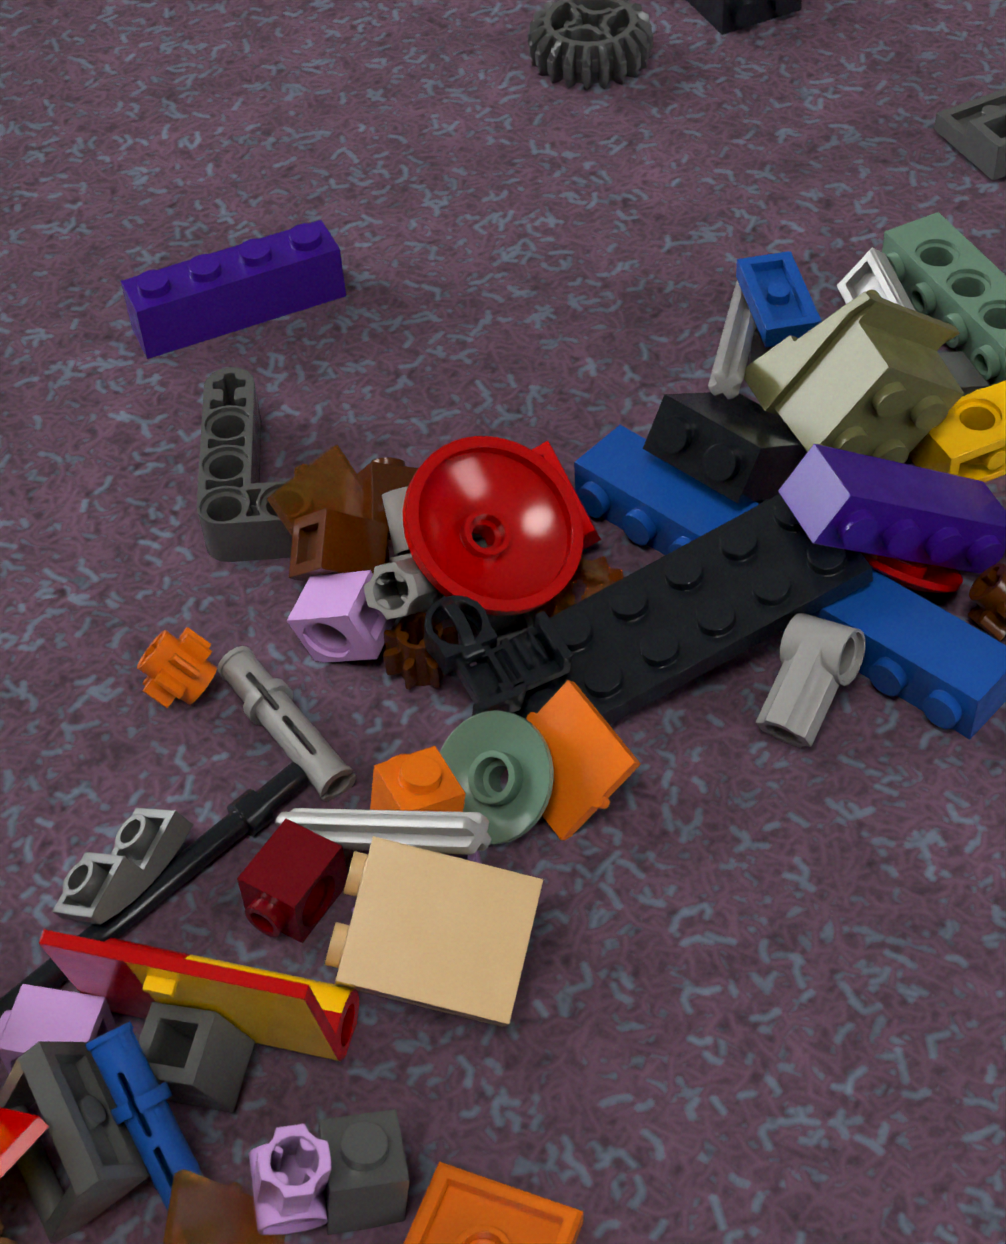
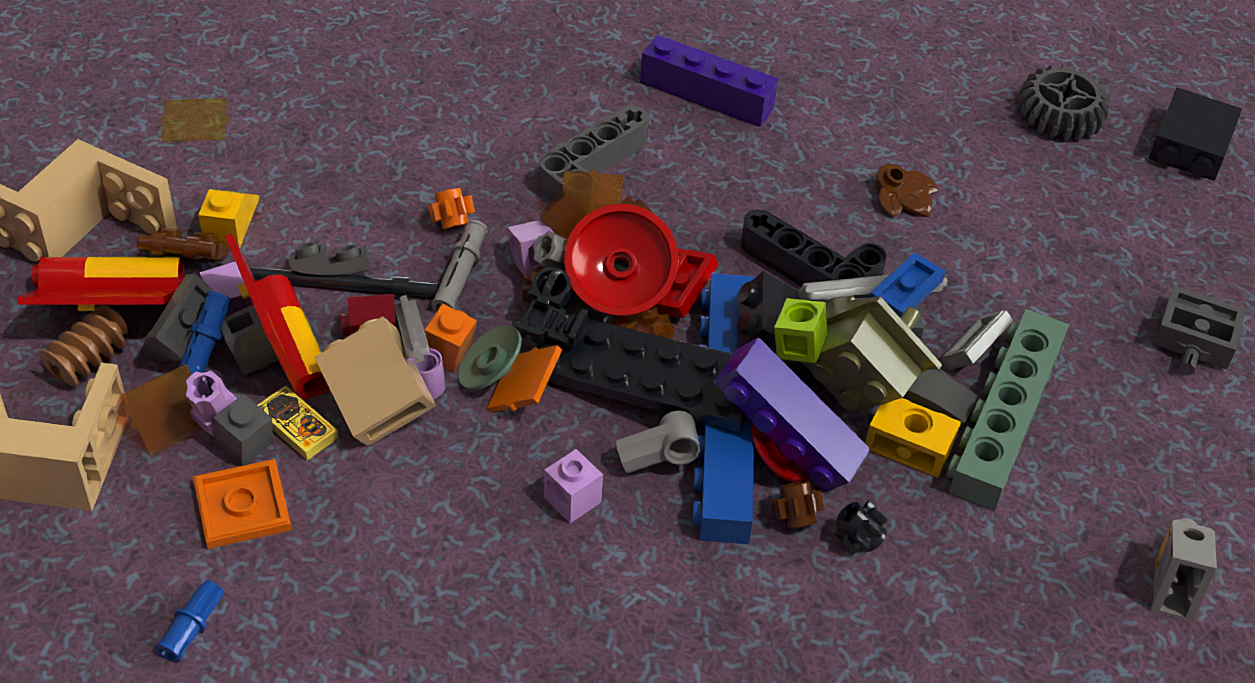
camera: 45 degrees right, 0 degrees up
(416, 1083) = (298, 423): none -> tile
(584, 234) = (904, 190): none -> reddish brown plate
(618, 371) = (801, 256): none -> black beam
(801, 813) = (573, 485): none -> lavender brick
(805, 408) = (801, 330): none -> lime brick

